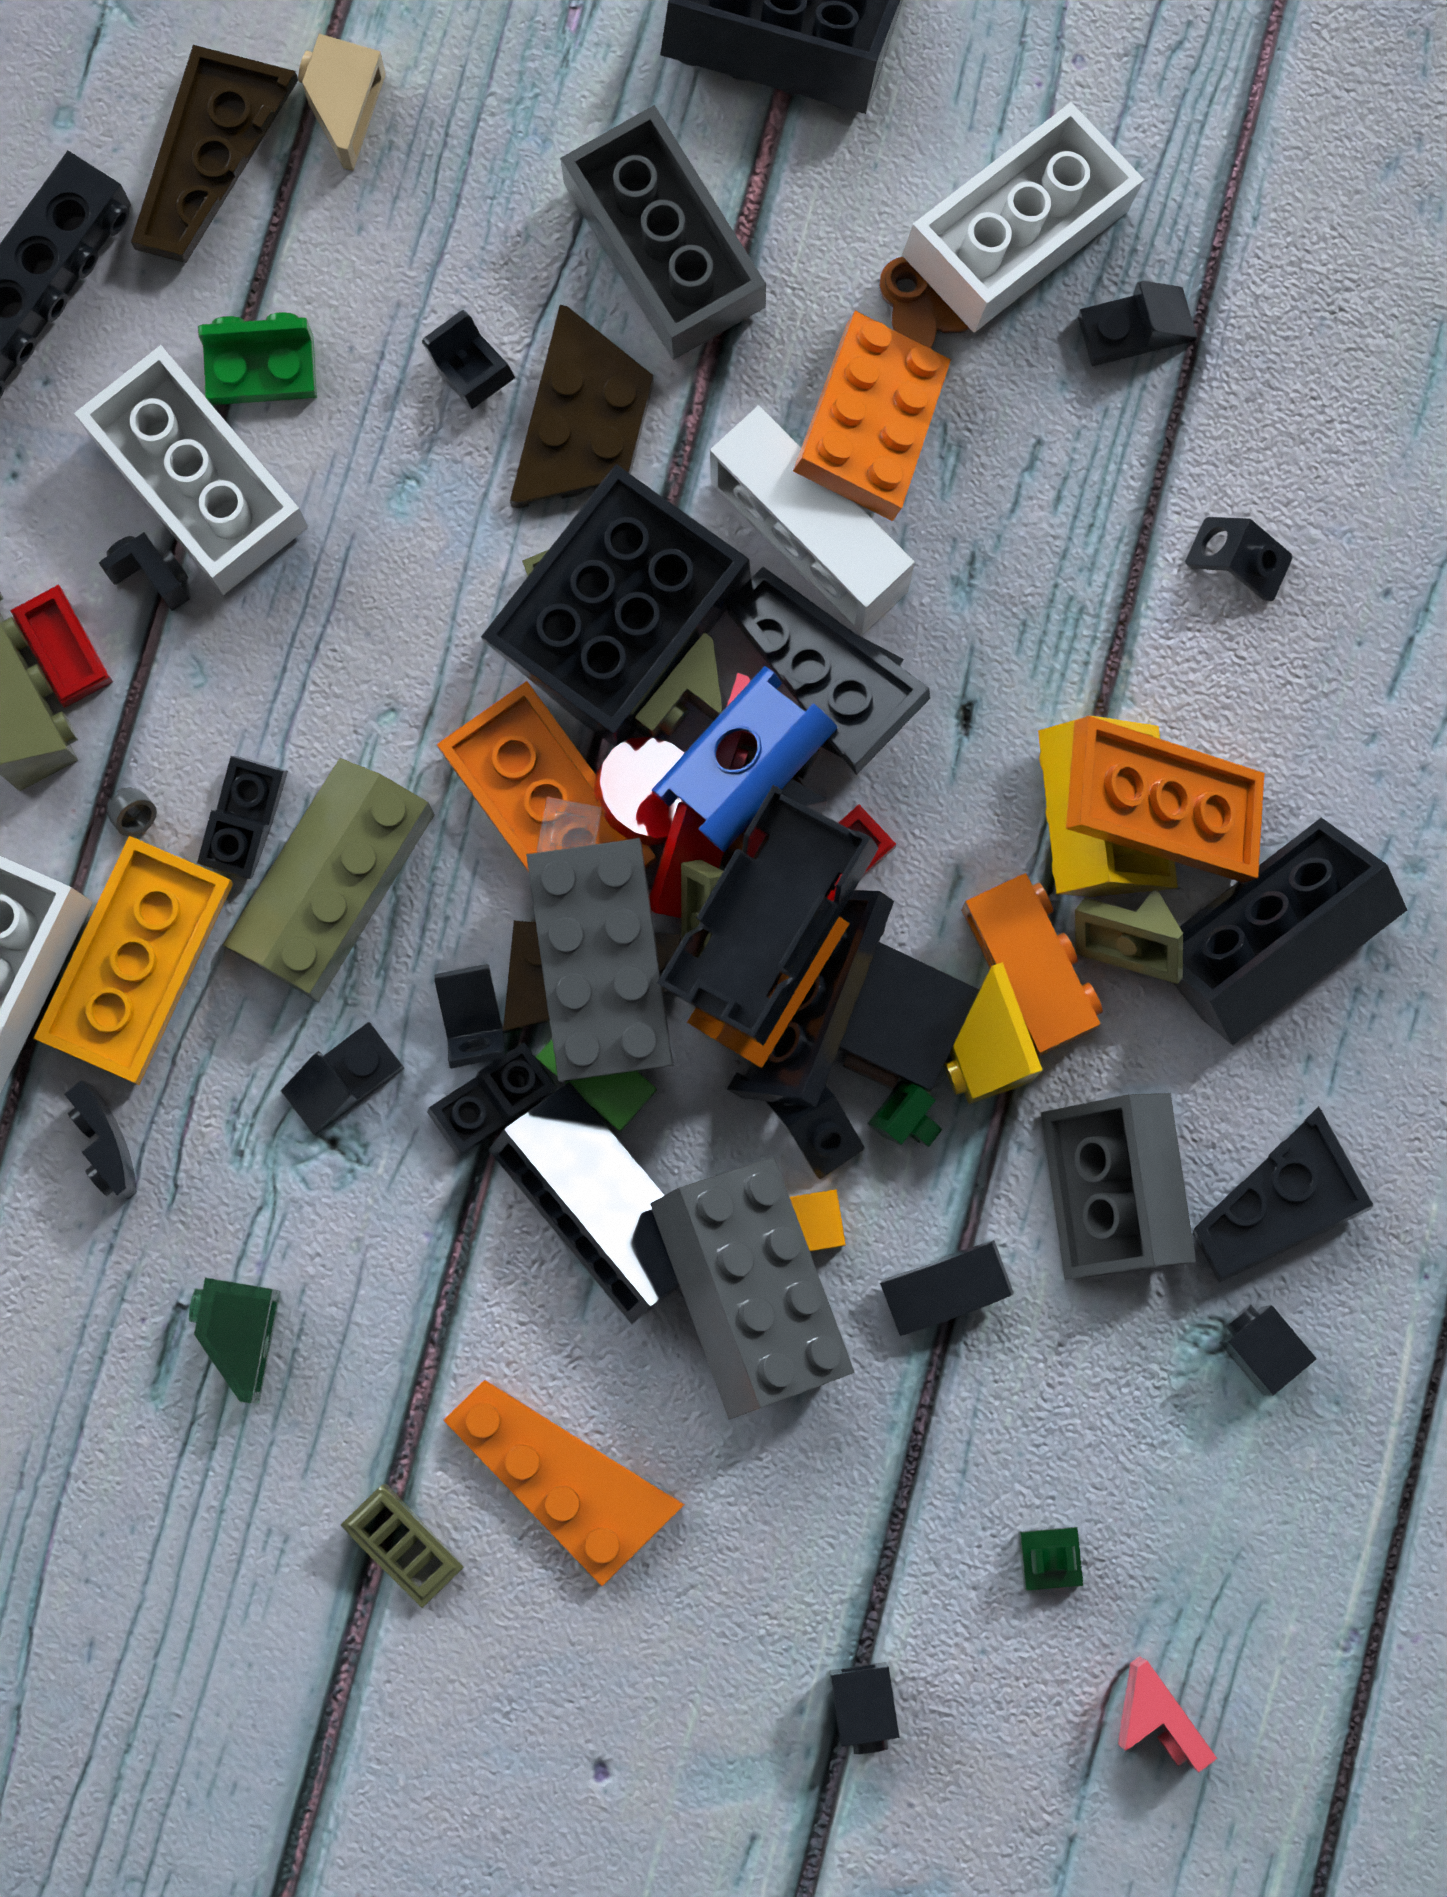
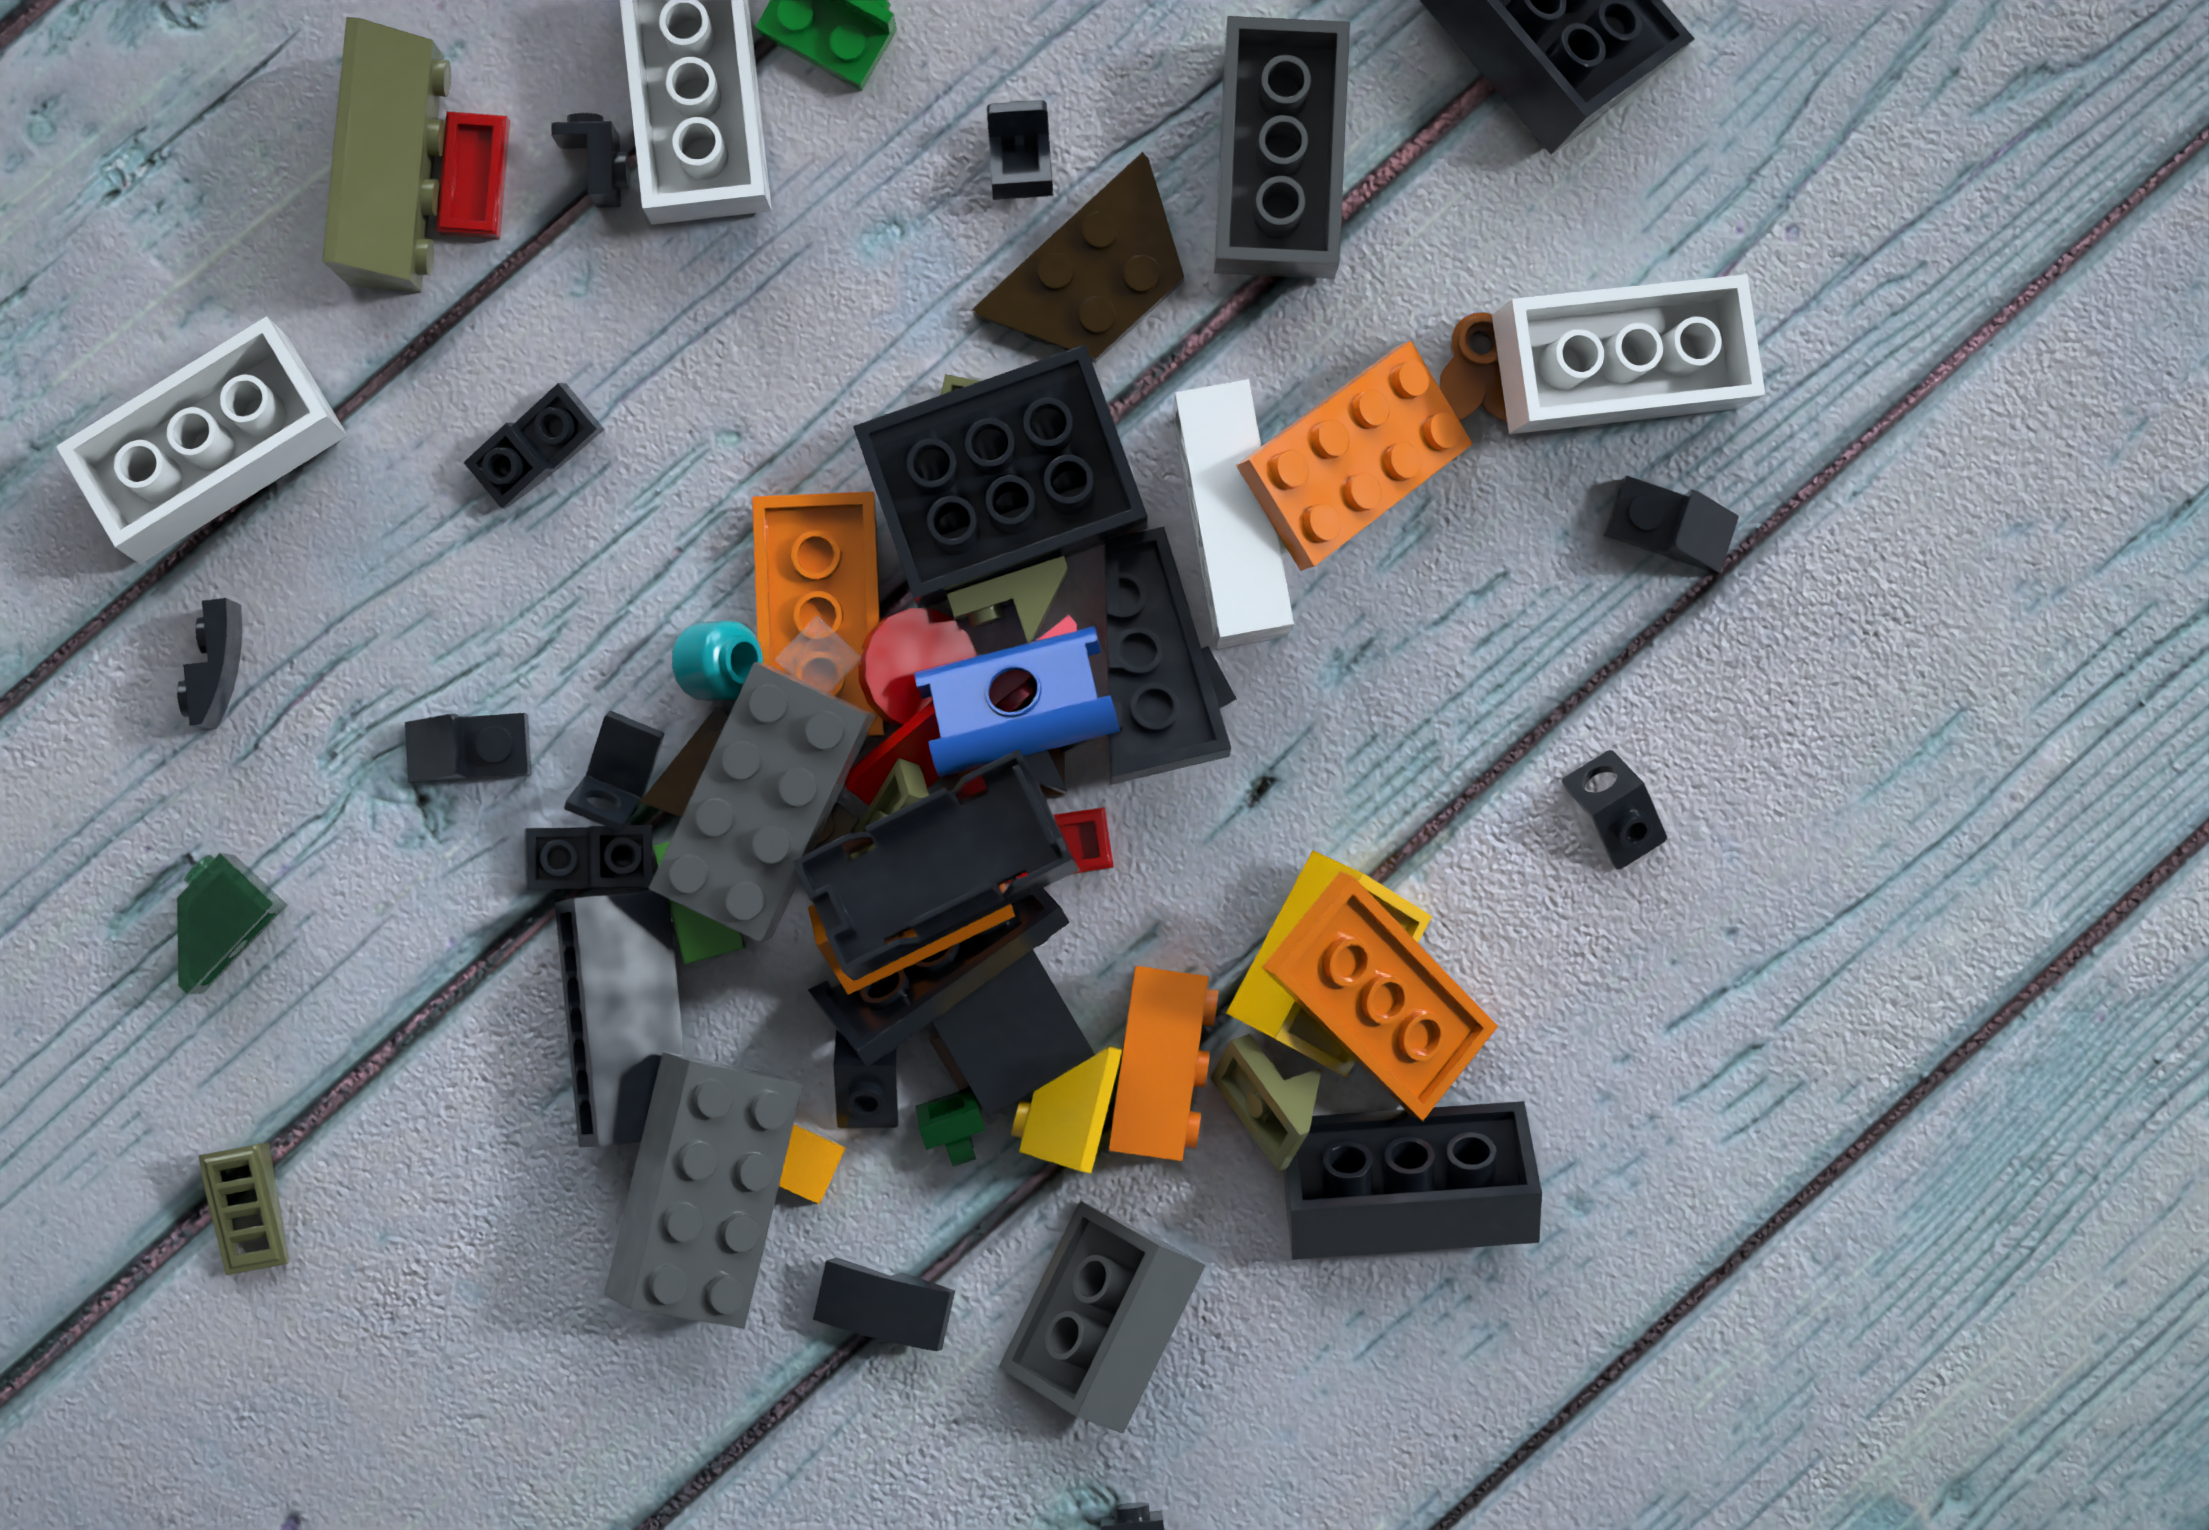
camera: 30 degrees right, 5 degrees up
(133, 960) = (348, 515): light orange plate -> none
(137, 822) = (424, 378): dark grey hinge -> none
(330, 877) = (573, 556): olive slope -> none
(492, 883) = (714, 659): none -> teal head
(572, 1488) = (429, 1262): orange wing -> none
(1284, 1202) = (1244, 1431): black wing -> none

